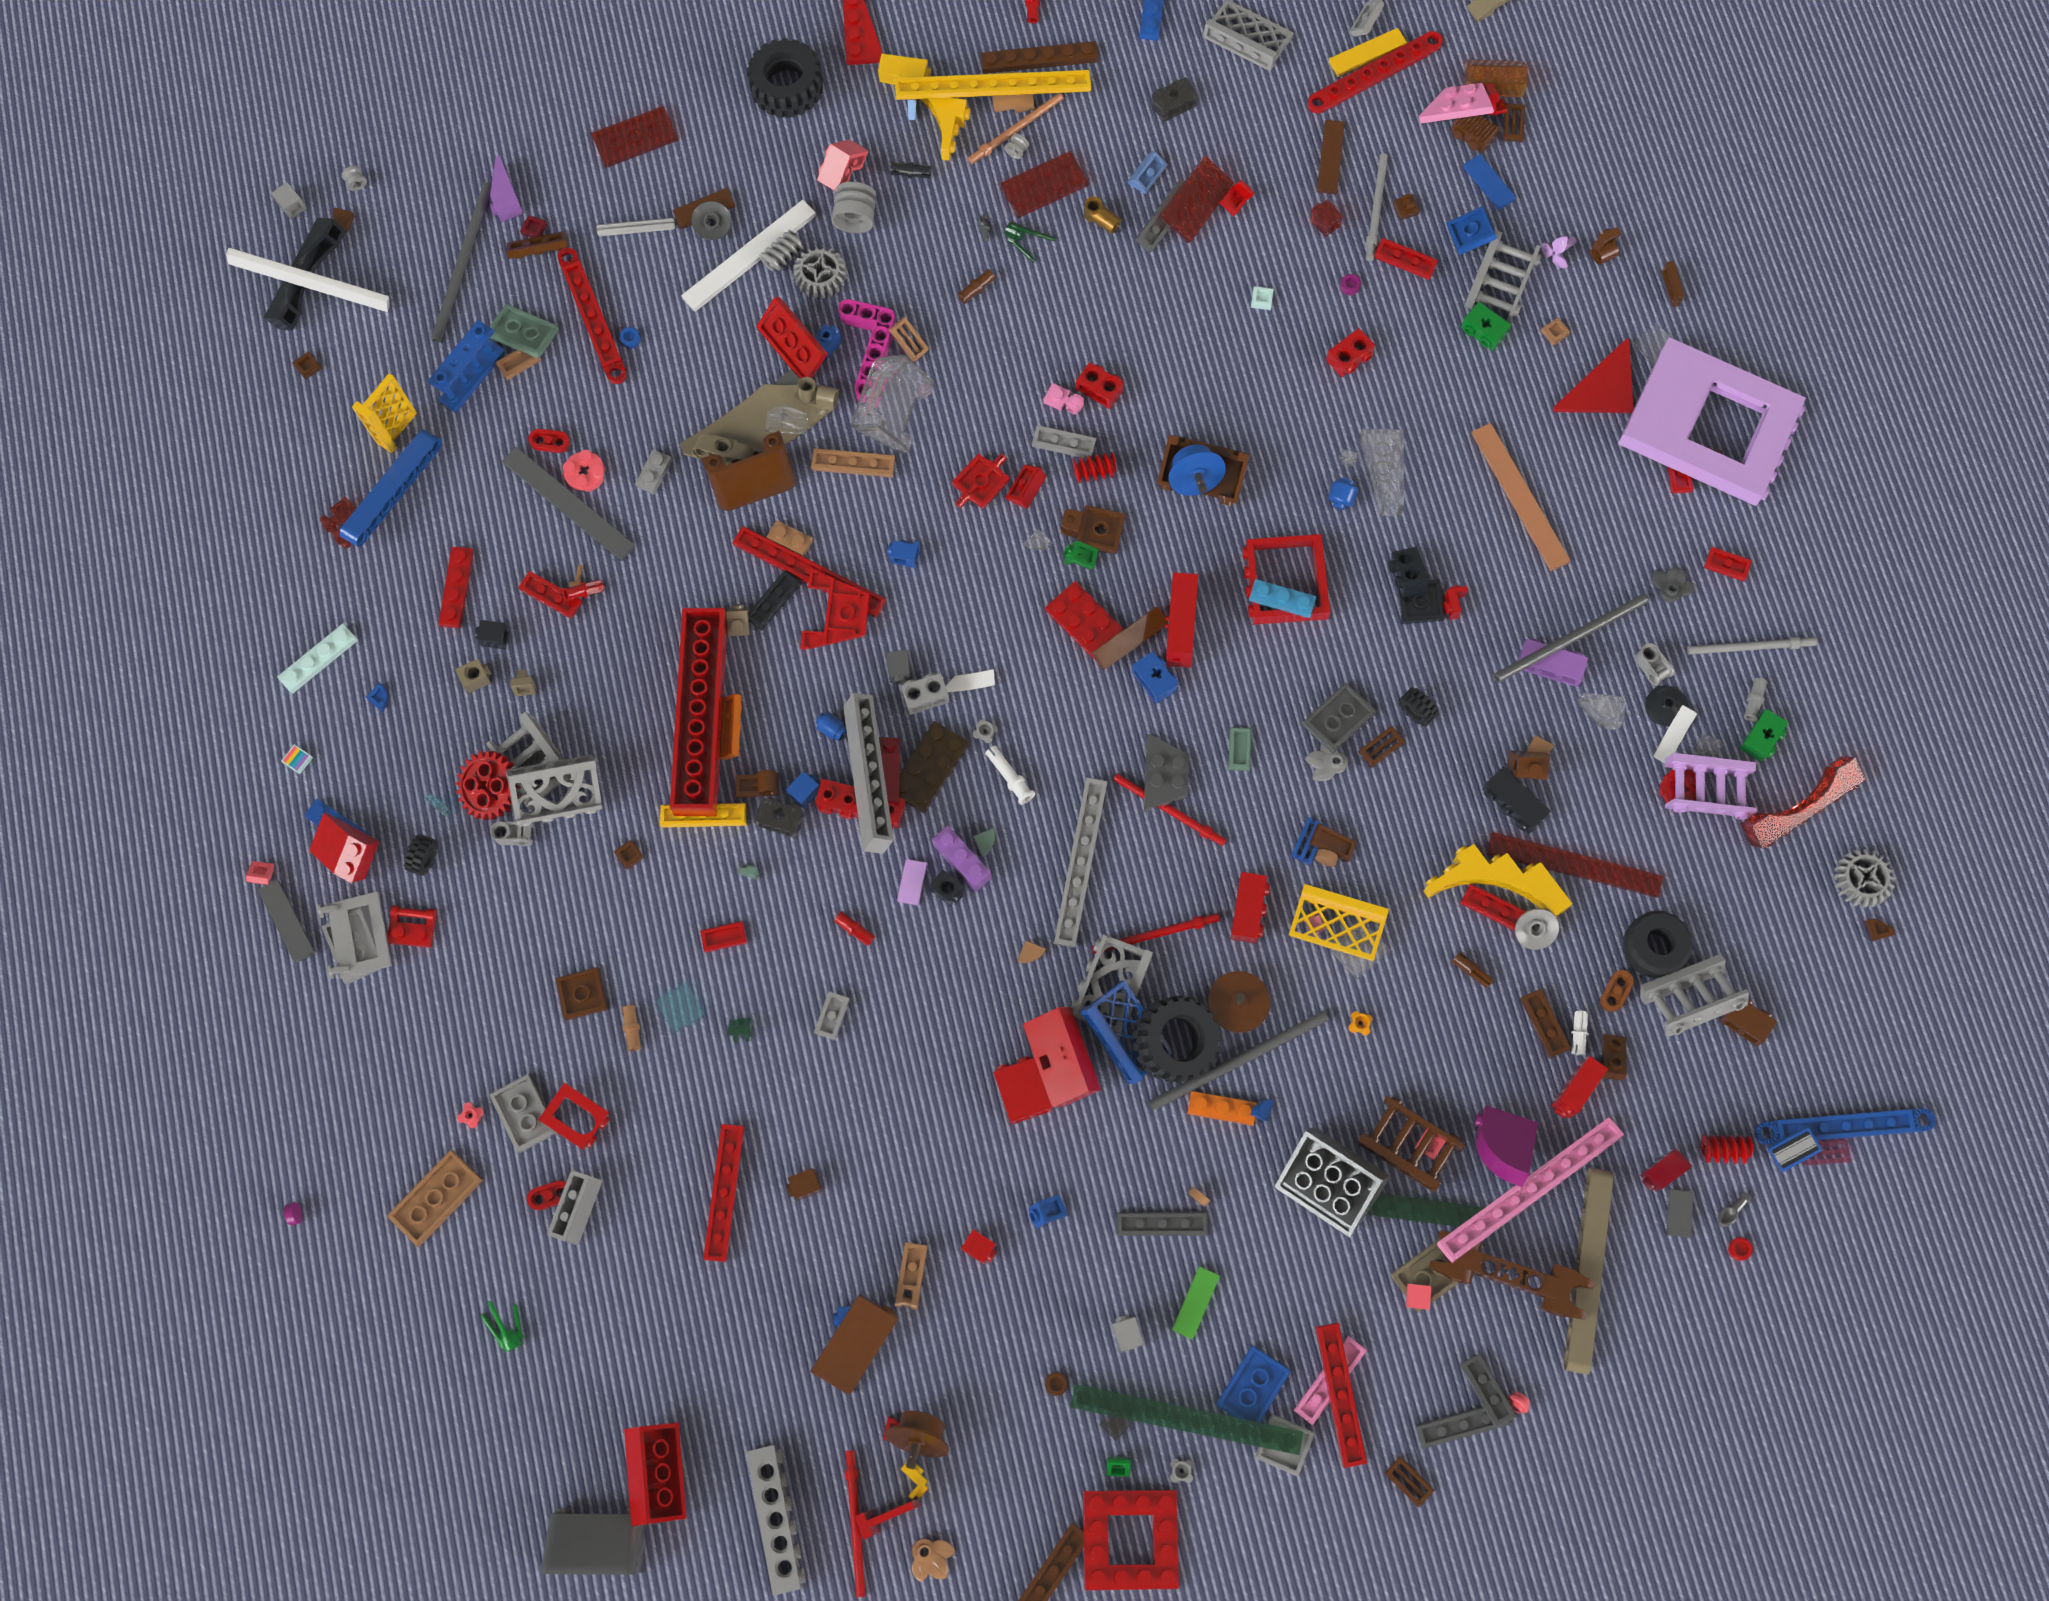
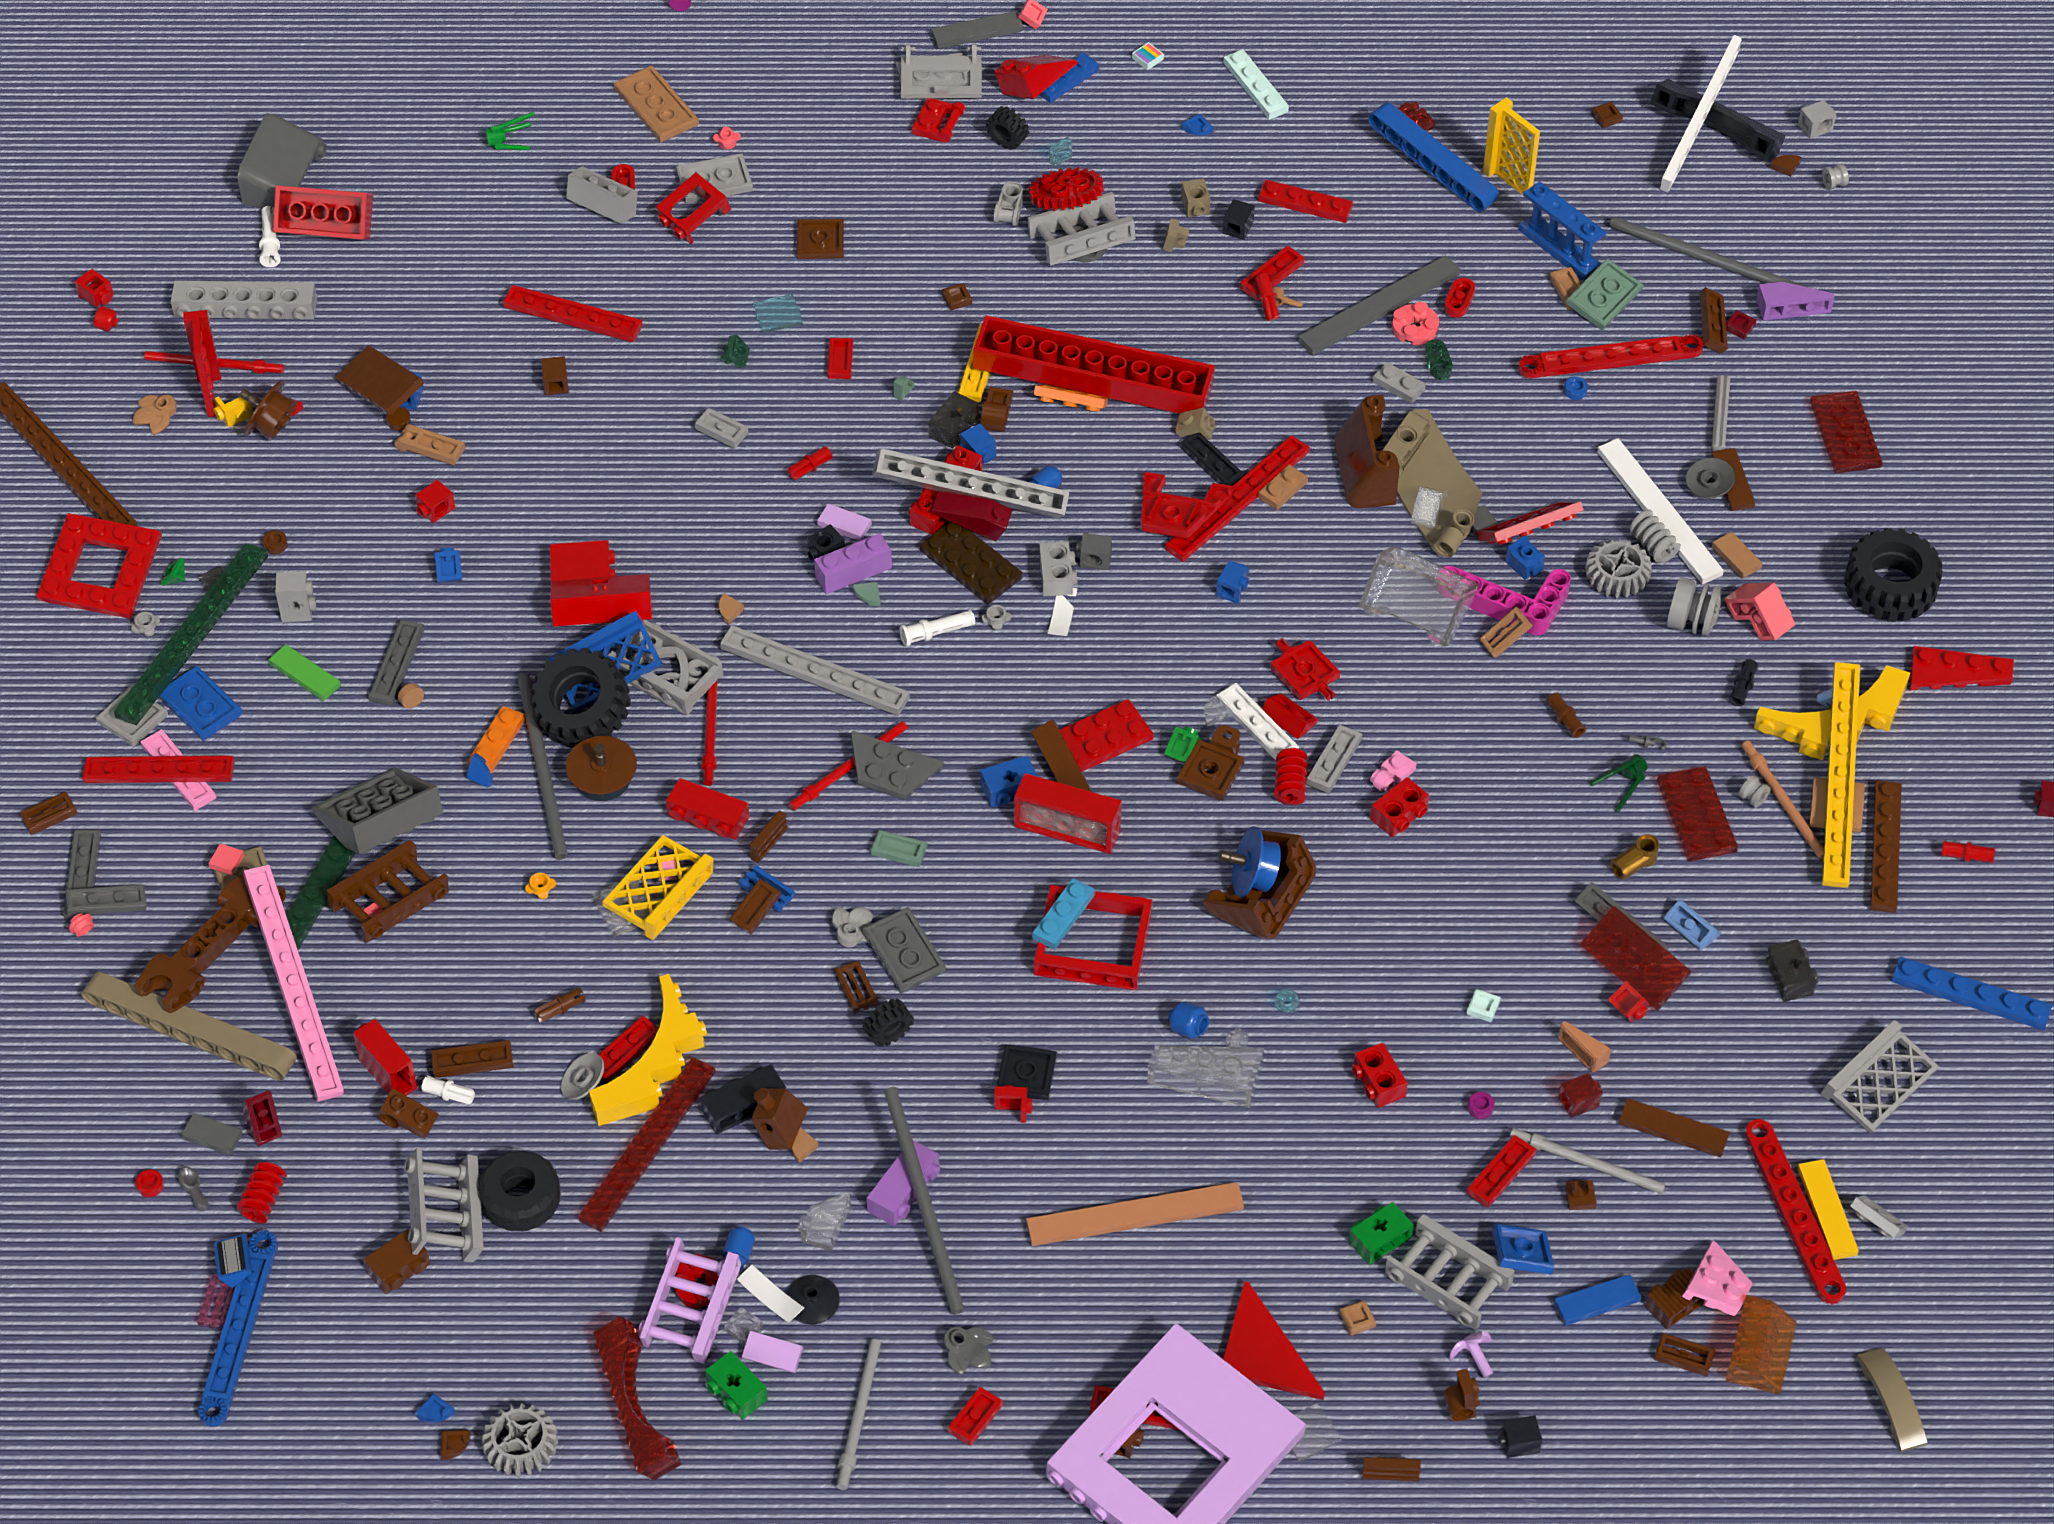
camera: 100 degrees right, 20 degrees down
(573, 766) = (1021, 222): light grey fence -> none
(621, 446) = (1443, 359): none -> clear green beam
(631, 1028) = (769, 268): medium nougat pin -> none
(694, 1521) = (269, 243): none -> white pin
(782, 194) = (1737, 555): none -> medium nougat tile
(853, 462) = (1360, 557): medium nougat plate -> none
(1040, 508) = (1255, 720): none -> white tile
(1262, 851) = (768, 836): none -> reddish brown tile
(1284, 221) = (1584, 1047): none -> nougat slope
(1305, 427) = (1287, 995): none -> clear light blue plate
(1326, 857) = (739, 895): medium nougat tile -> none
(1408, 571) = (1062, 1062): black brick -> none
(1498, 104) = (1715, 1325): red bracket -> none
(1505, 1143) = (350, 972): magenta brick -> none
(1615, 991) = (484, 1141): dark orange plate -> none
(1618, 208) = (1520, 1436): none -> black brick
(1647, 767) = (739, 1242): none -> blue brick
(1656, 664) = (865, 1292): light grey piece -> none
(1725, 719) = (772, 1352): none -> lavender tile
(1755, 699) = (787, 1393): light grey pin -> none
(1856, 953) = (434, 1410): none -> blue tile

